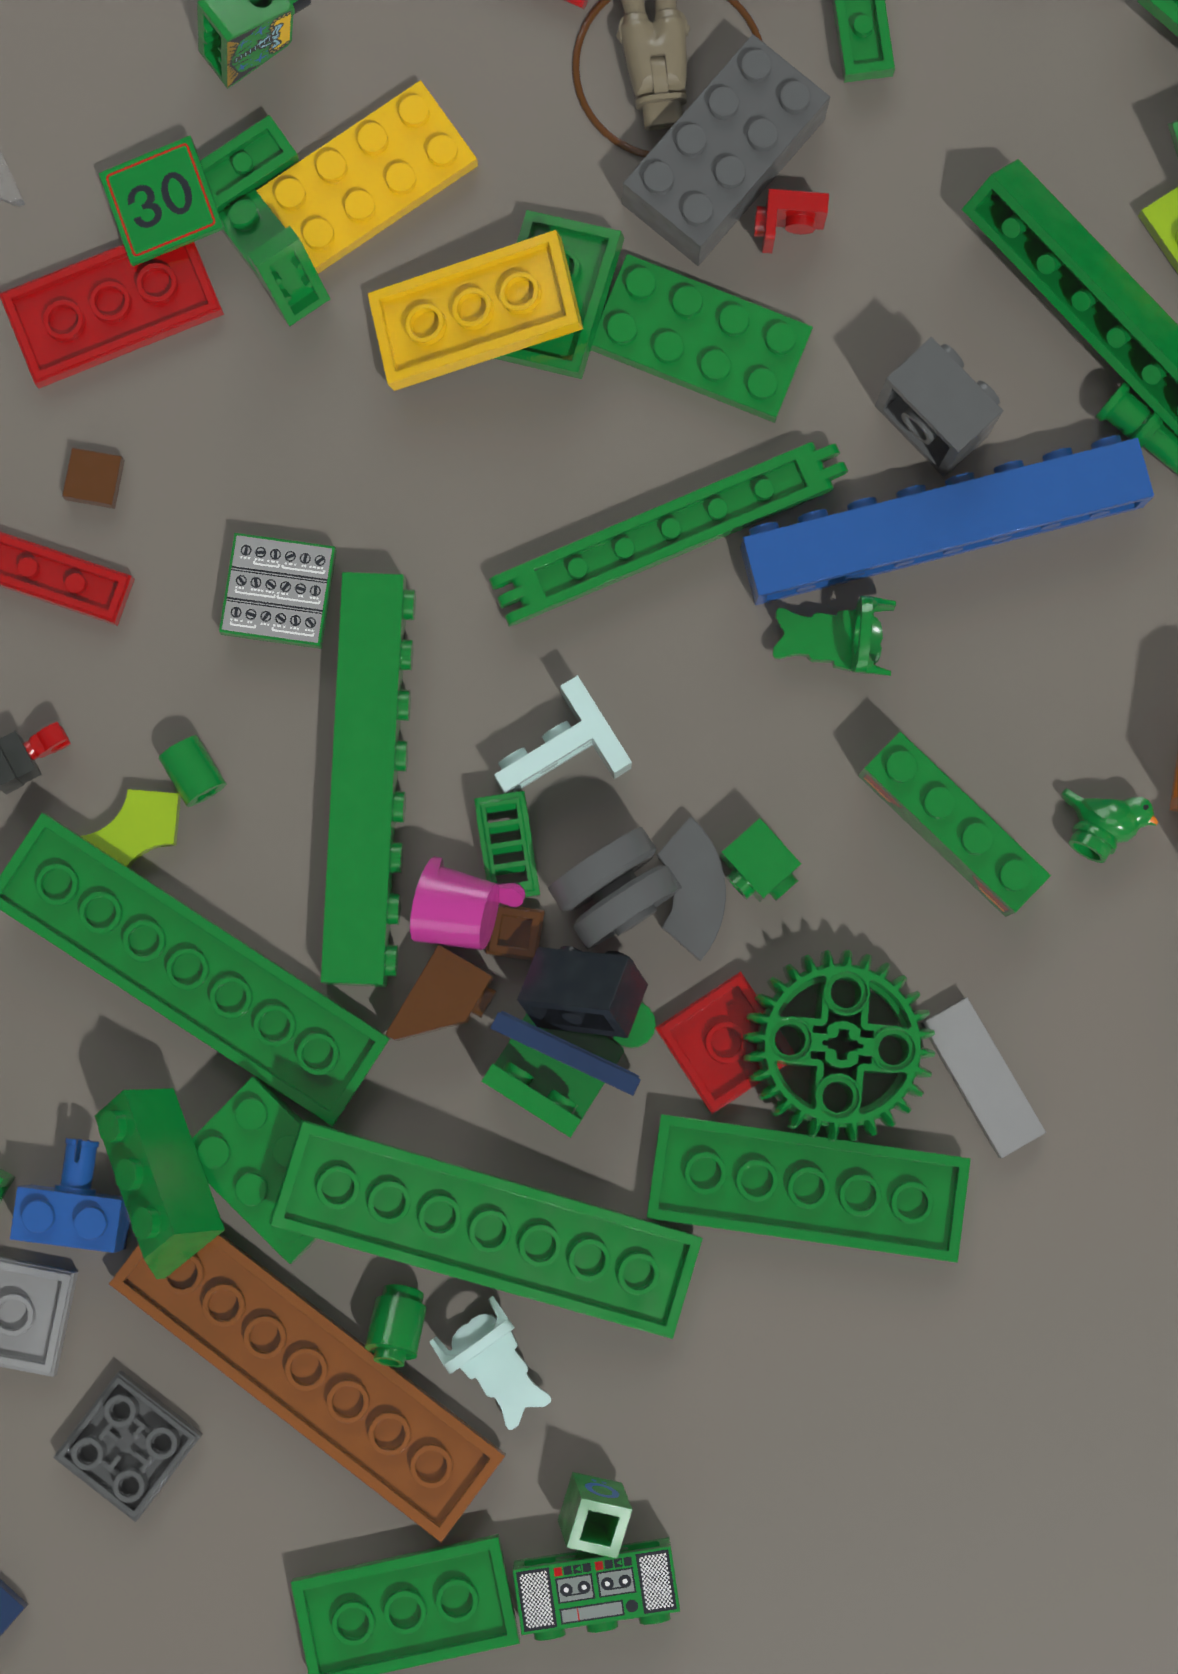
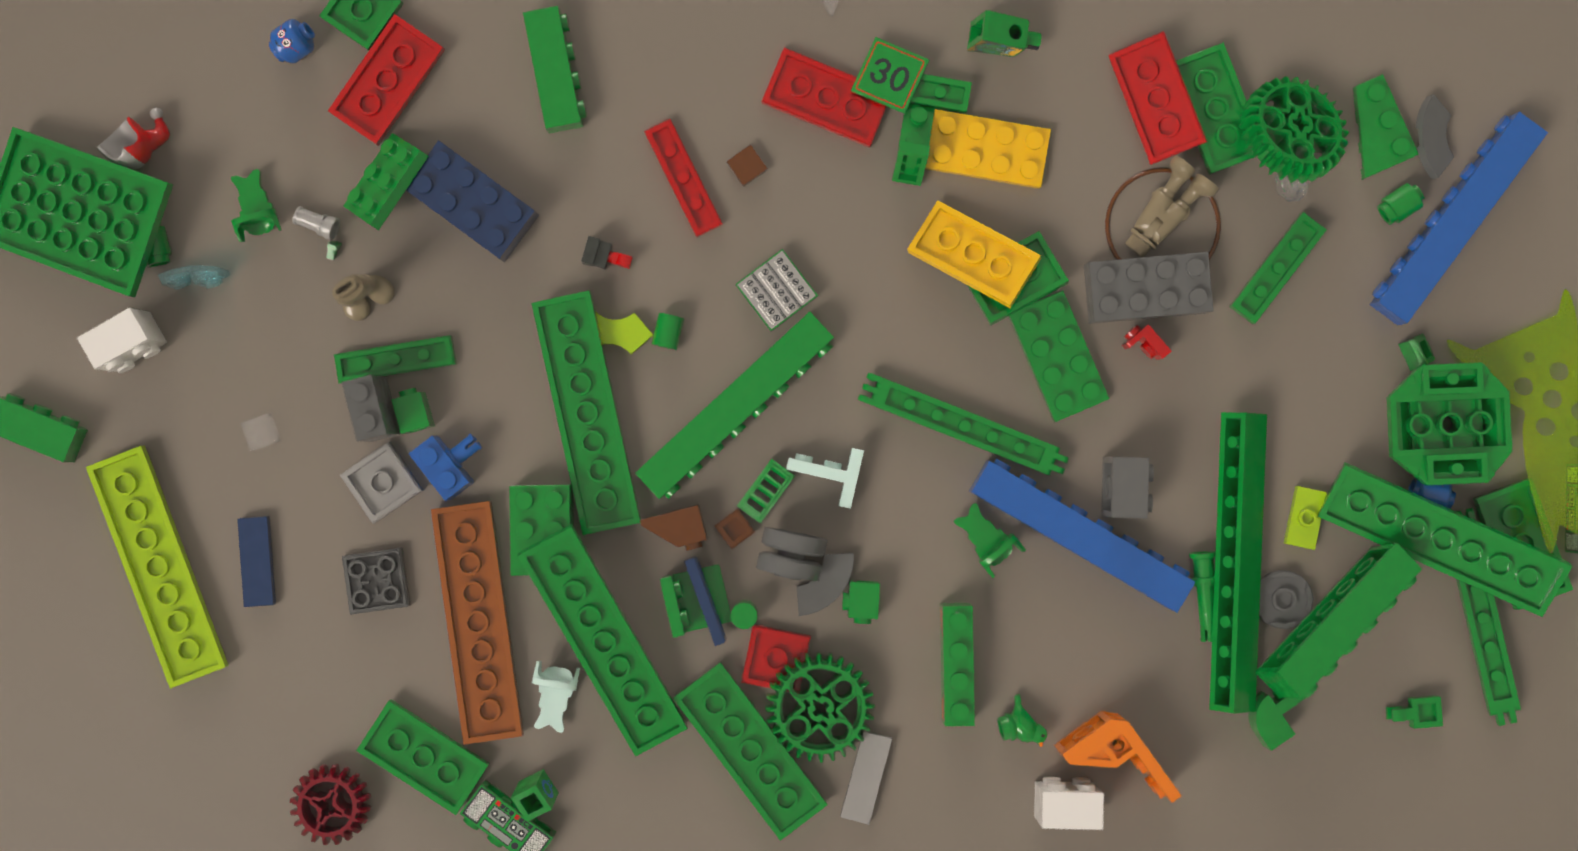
camera: 40 degrees right, 5 degrees up
(159, 1177) = (492, 489): green slope -> none
(396, 1325) = (530, 641): green brick -> none
(458, 907) = (720, 497): dark pink hat -> none
(583, 991) = (737, 583): black brick -> none

